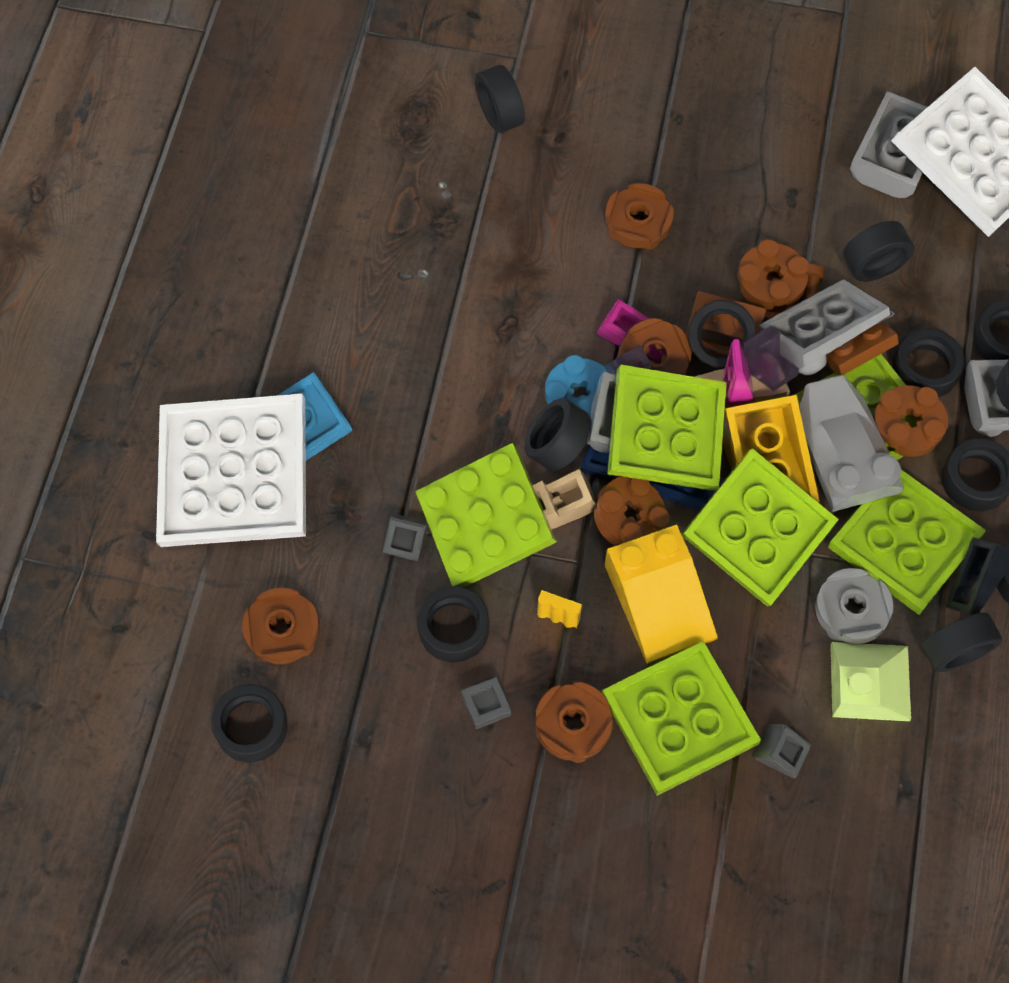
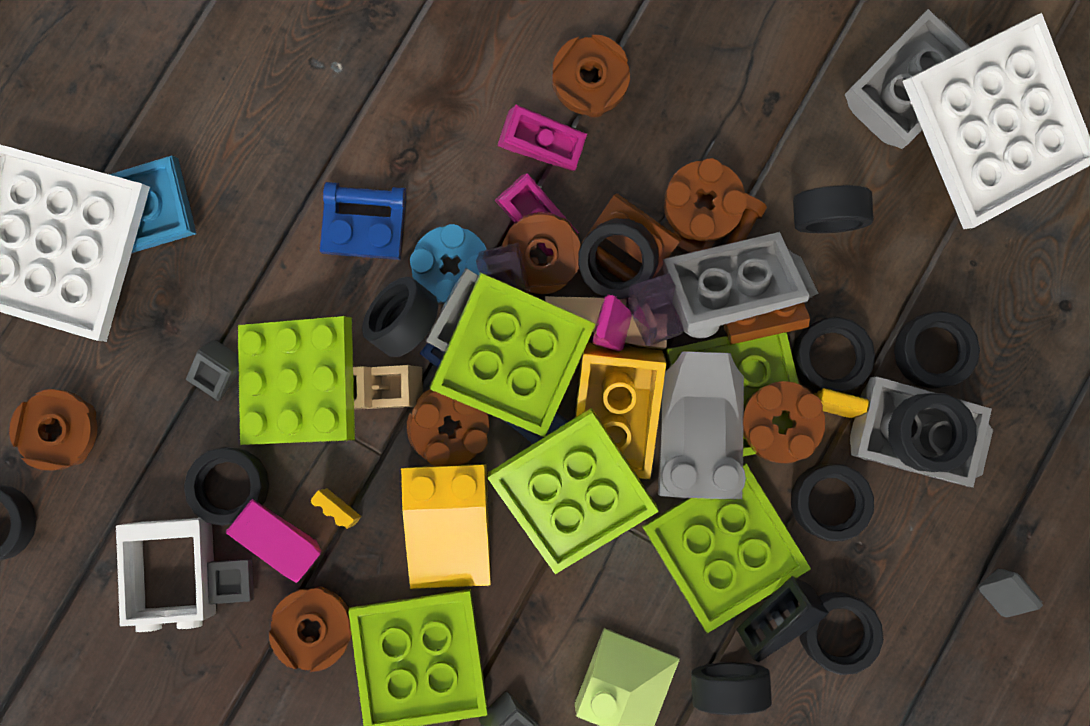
camera: 15 degrees right, 20 degrees up
(413, 676) = (131, 573): none -> white window
(495, 390) = (360, 233): none -> blue plate
(516, 651) = (275, 540): none -> dark pink slope
(616, 274) = (541, 138): none -> dark pink slope
(845, 625) = (653, 621): light grey plate -> none
(954, 394) = (842, 403): none -> yellow piece

